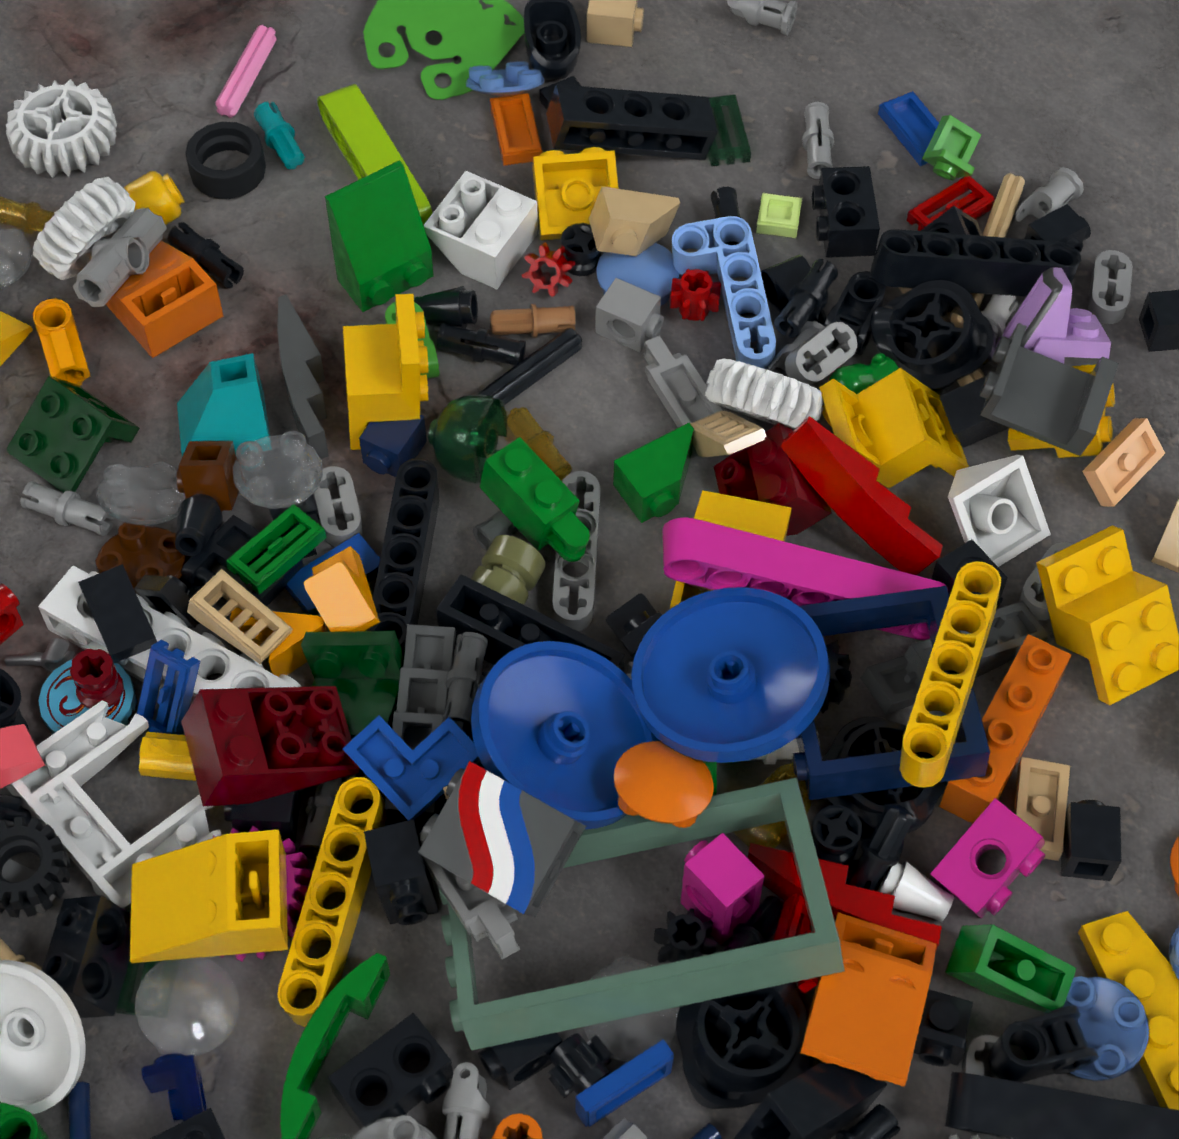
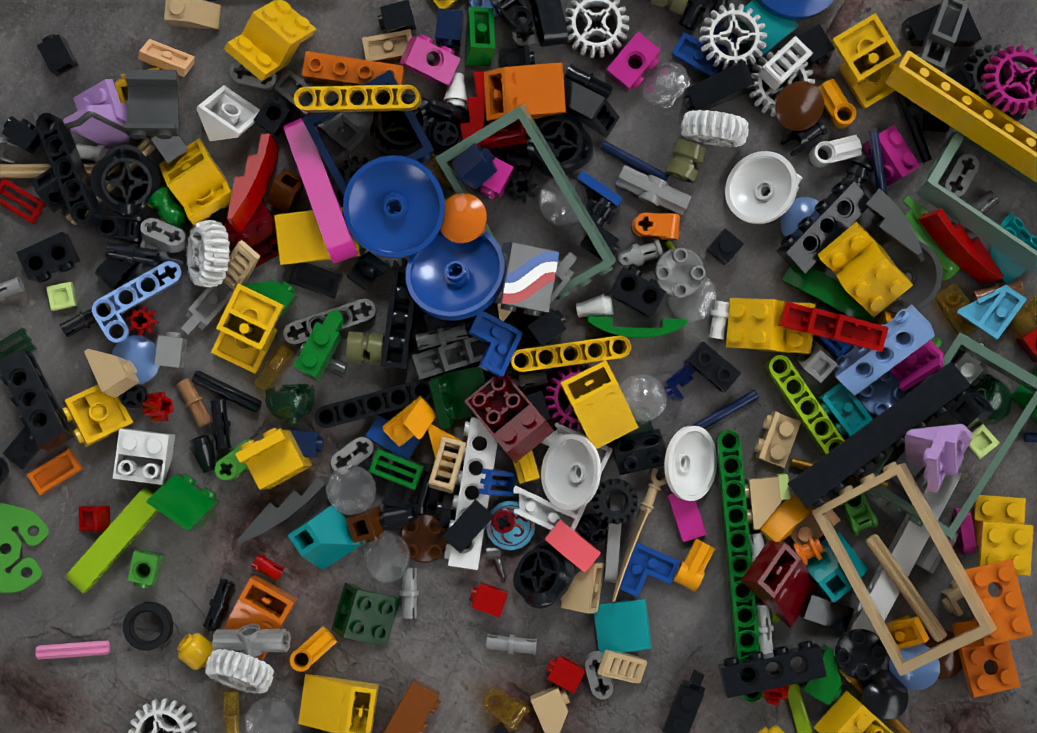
camera: 110 degrees left, 30 degrees up
(111, 804) = (571, 472): none -> white dish
(225, 331) = (267, 567): none -> red pin
(279, 134) = (116, 604): teal axle -> none
(310, 178) = (150, 558): none -> bright green brick
(399, 990) = (597, 307): none -> white cone
(423, 152) = (94, 518): none -> red slope
(504, 82) = (24, 491): medium blue dish -> none
(617, 415) = (247, 328): none -> yellow bracket
(643, 564) = (315, 279): none -> black tile
(751, 830) = (475, 166): none -> dark blue brick
(833, 537) = (281, 194): none -> reddish brown brick
(1046, 920) = (449, 27): none -> dark blue brick
(1117, 288) = (44, 102): light grey beam -> none

